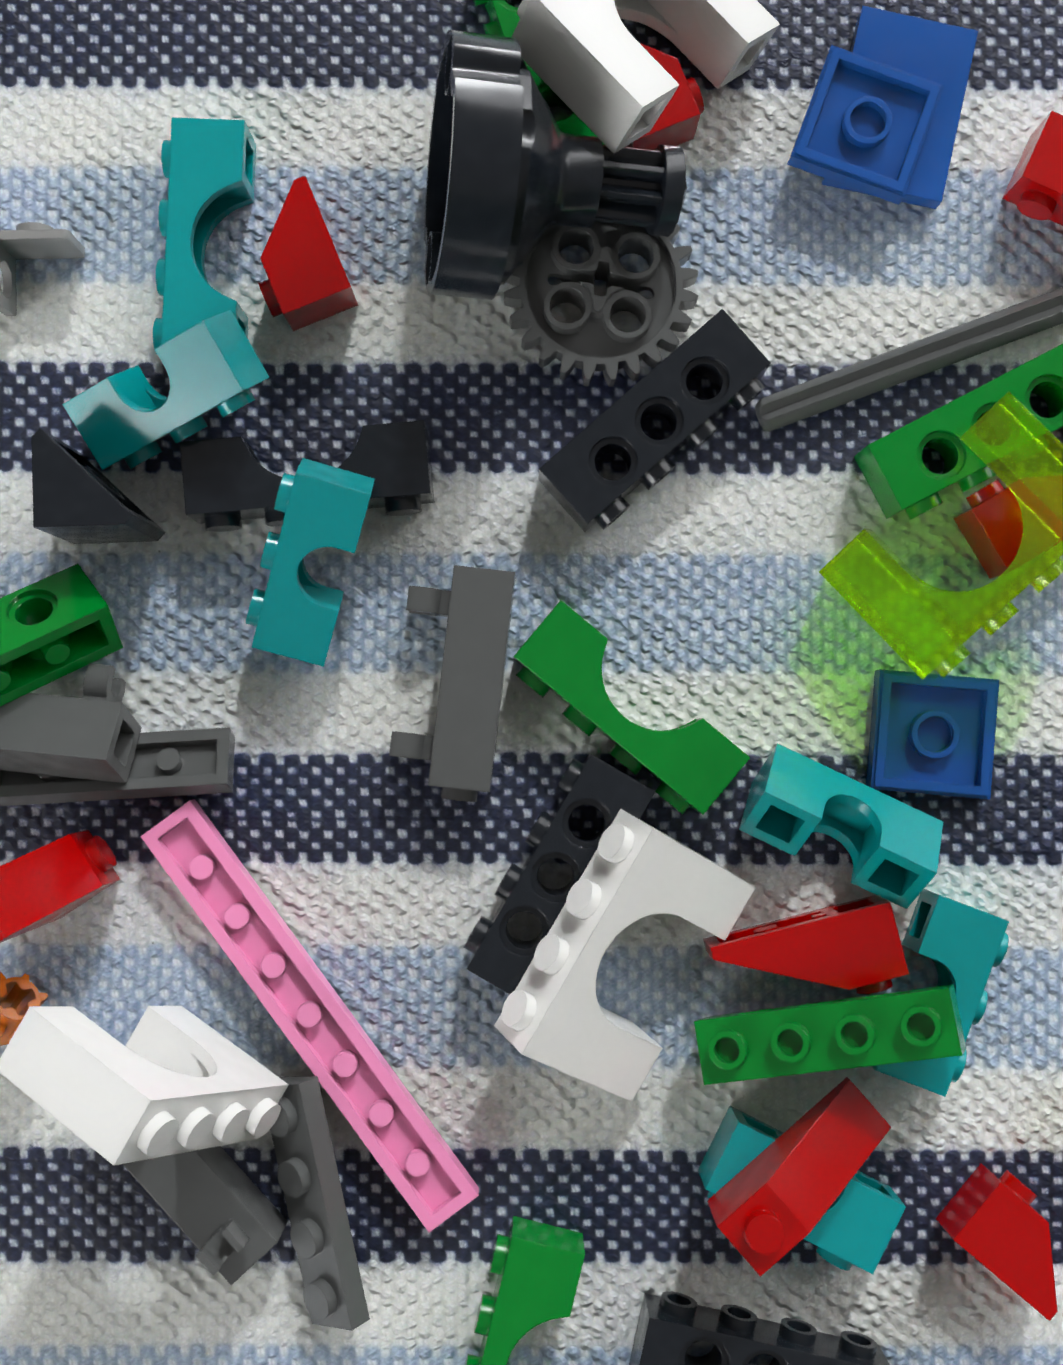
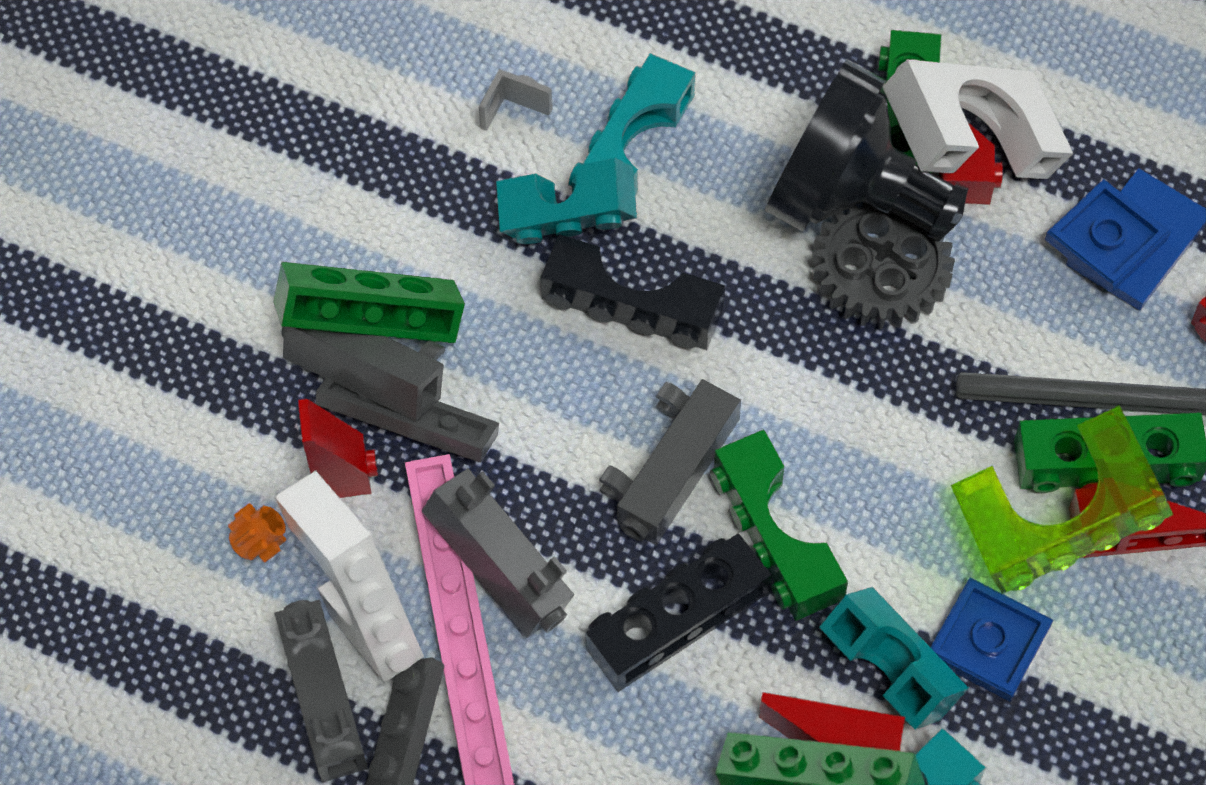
camera: 30 degrees right, 25 degrees down
(80, 501) = (479, 245): black slope -> none
(303, 265) = (691, 171): red slope -> none
(314, 913) = (499, 553): none -> dark grey brick
(321, 510) = (579, 361): teal arch -> none
(555, 1004) = (636, 675): white arch -> none
(715, 352) = (938, 326): black brick -> none

